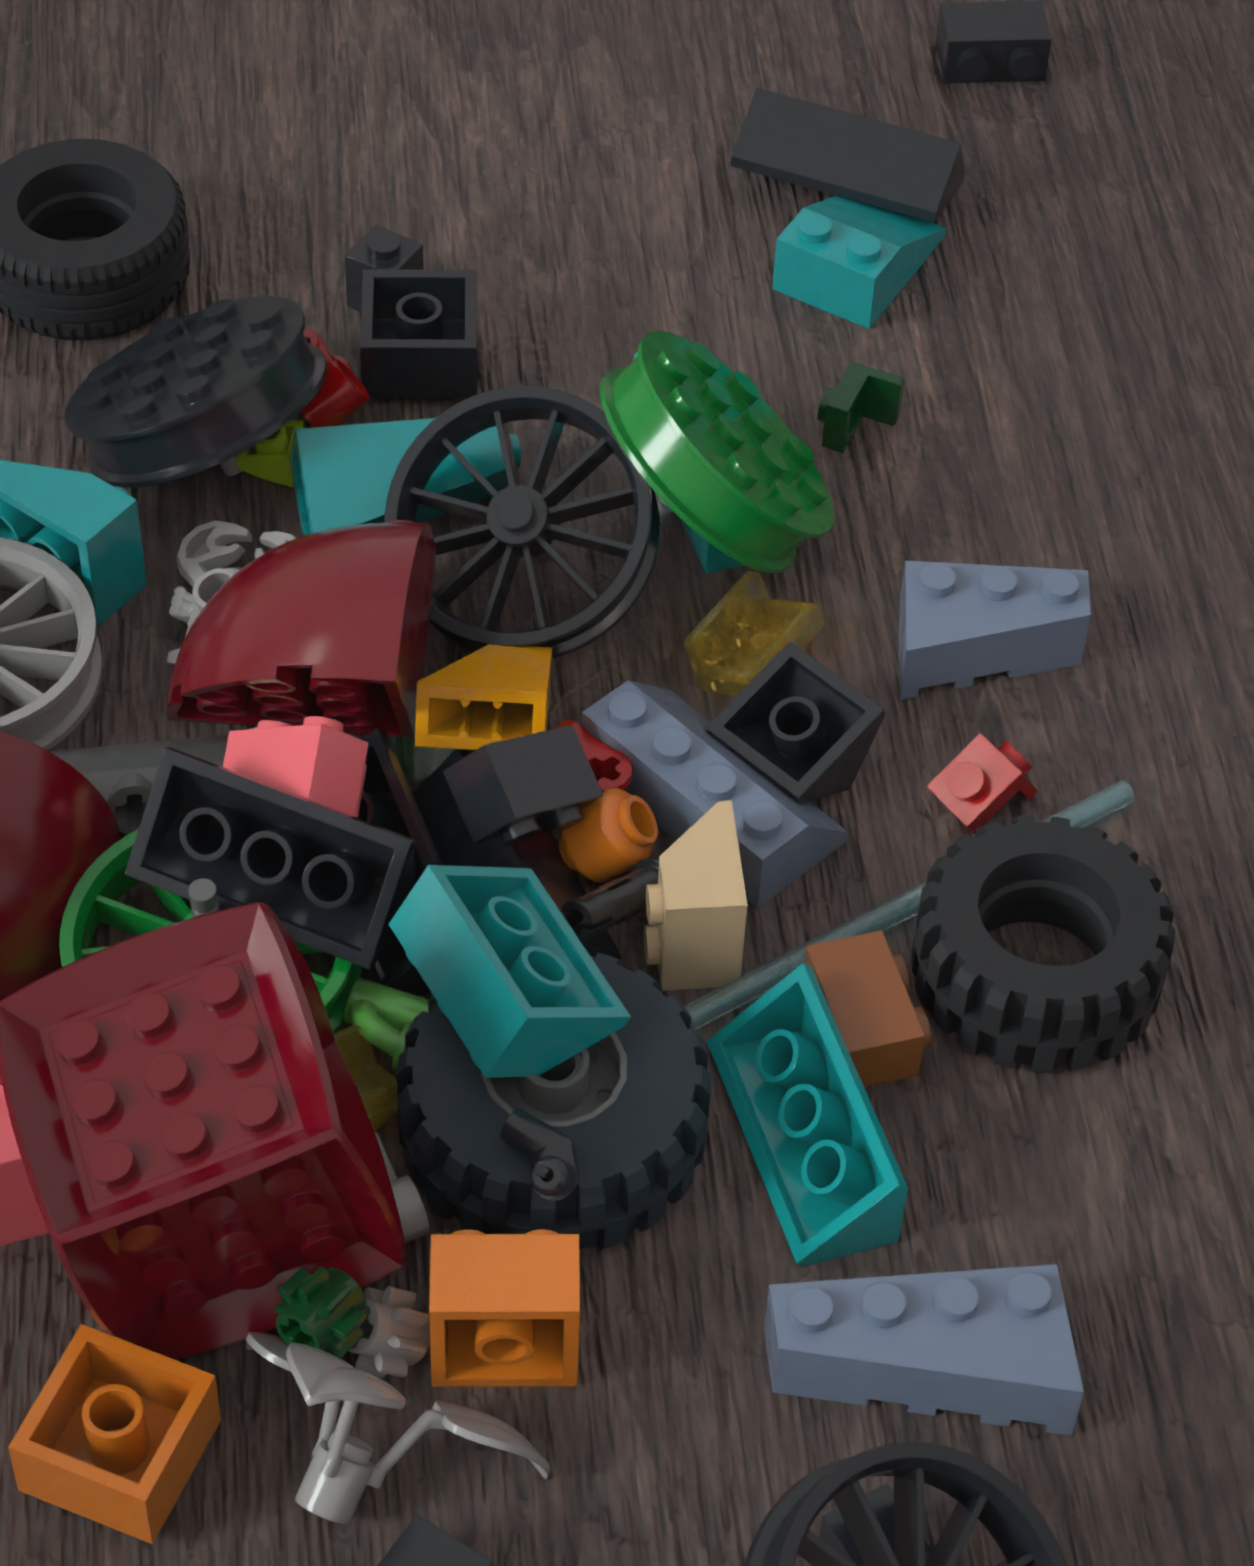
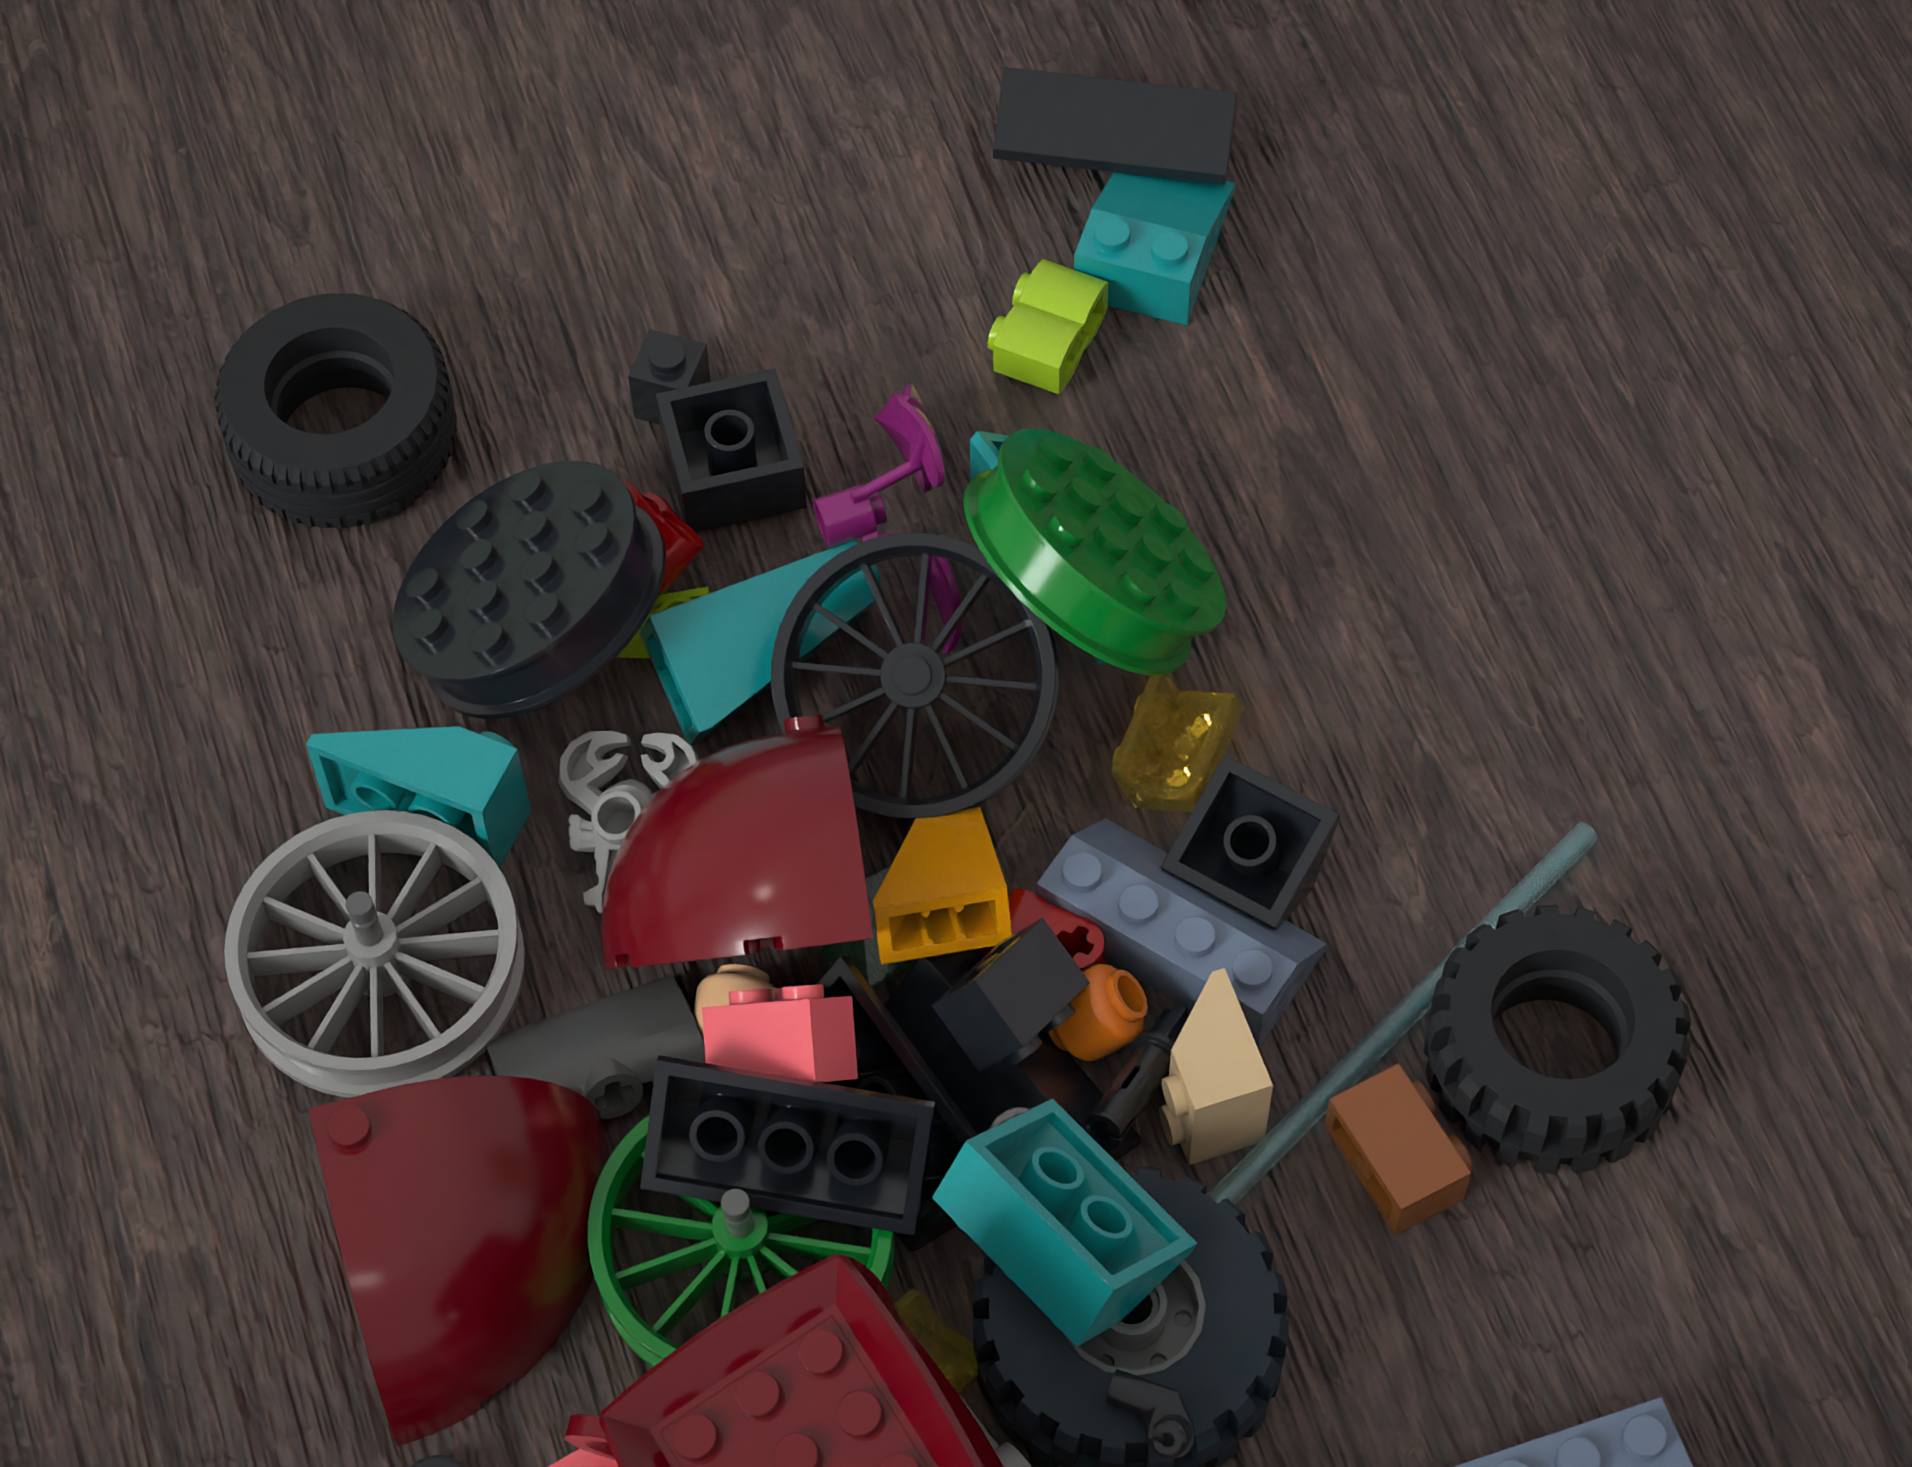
camera: 10 degrees left, 10 degrees up
(383, 1014) = (936, 1265): bright green plant -> none
(577, 345) = (860, 509): none -> magenta plant
(740, 299) = (1048, 326): none -> lime brick
(810, 1123) = (1378, 1286): teal slope -> none
(859, 394) = (1207, 415): dark green bracket -> none
(982, 781) = (1446, 858): bracket -> none
(988, 621) = (1404, 669): sand blue wedge -> none

